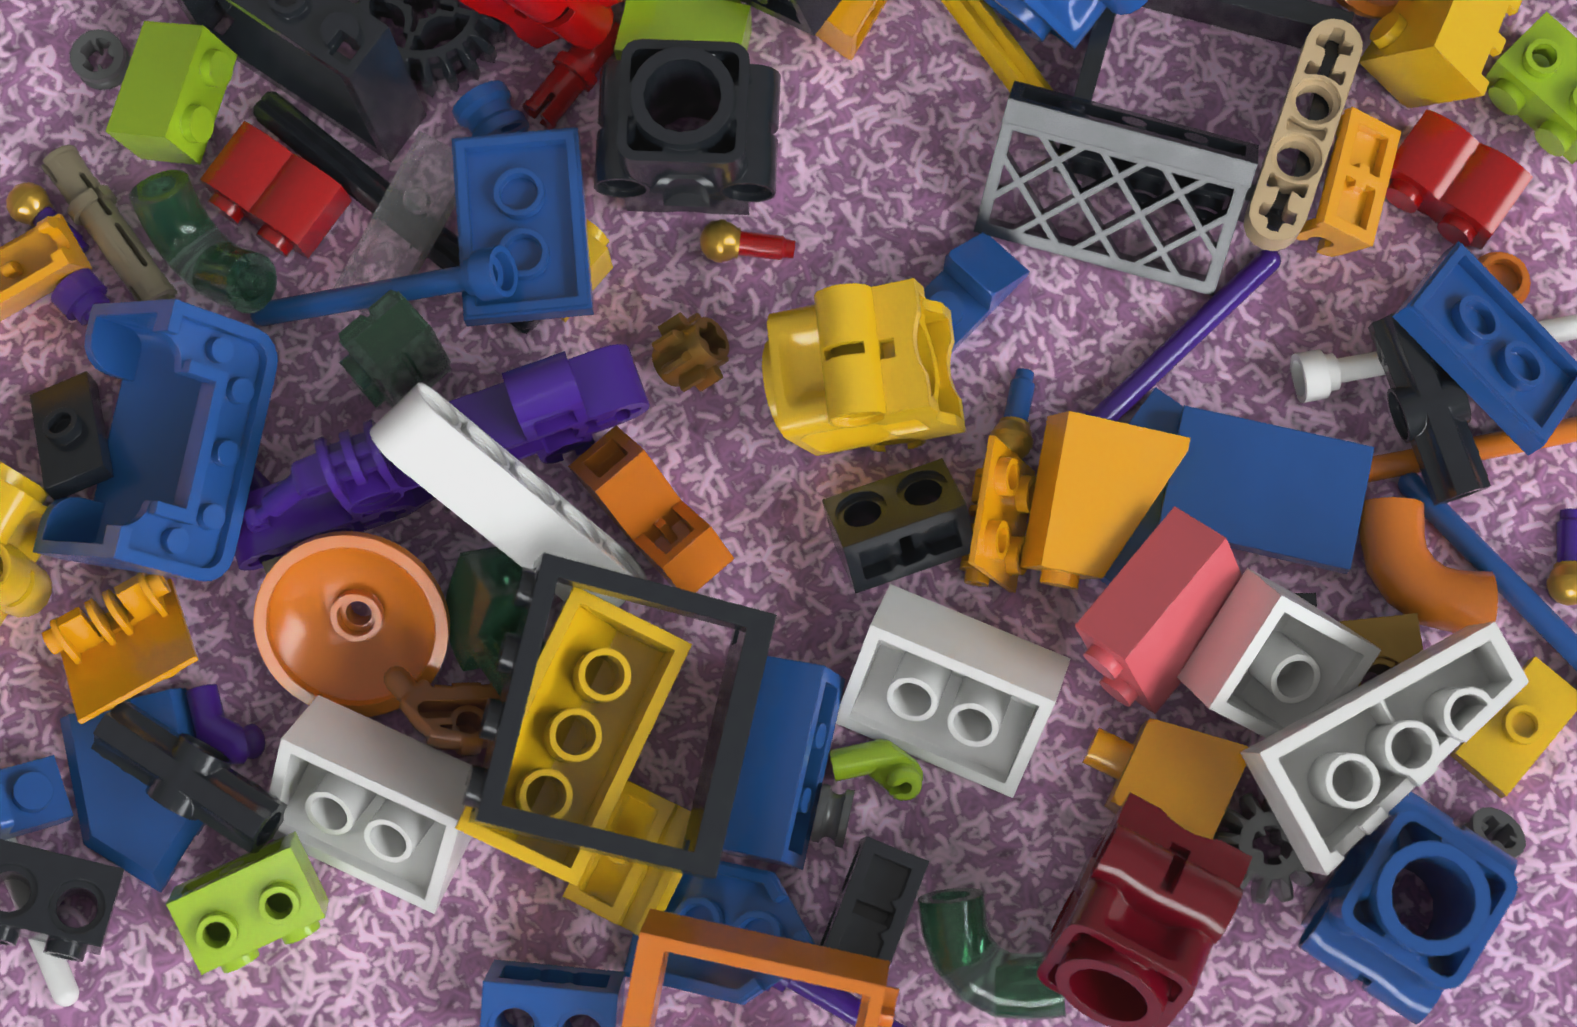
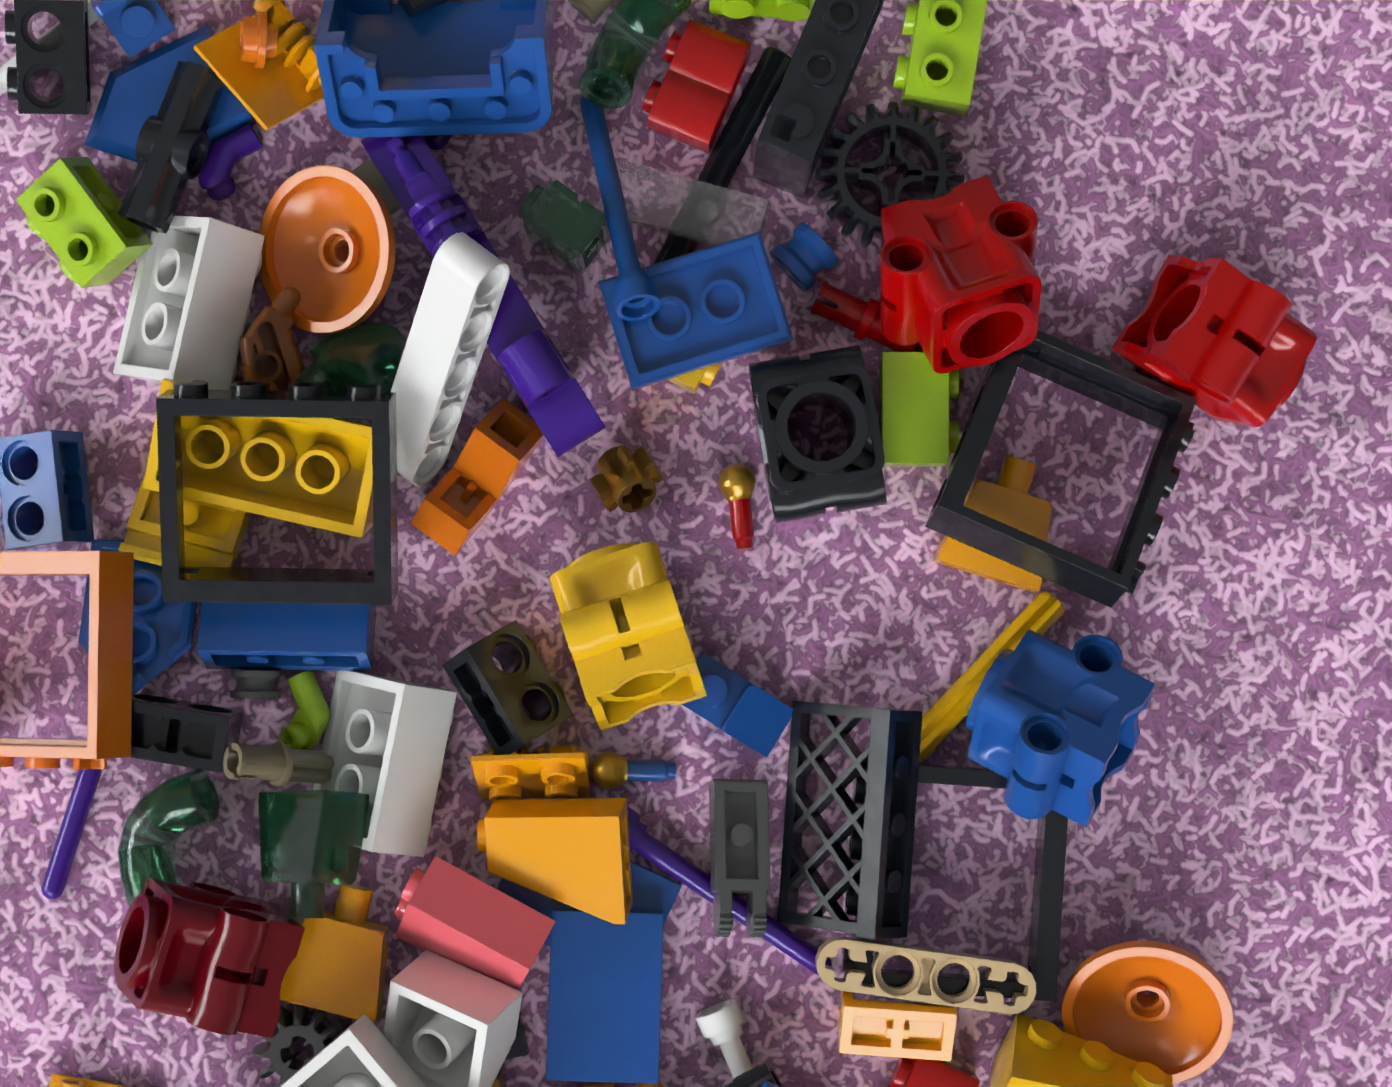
camera: 70 degrees right, 10 degrees up
(91, 648) = (257, 39): none -> orange plate
(931, 800) = (277, 764): none -> dark tan axle
(1030, 776) = (311, 843): none -> clear green torso
(1134, 313) = (739, 851): none -> dark grey hinge

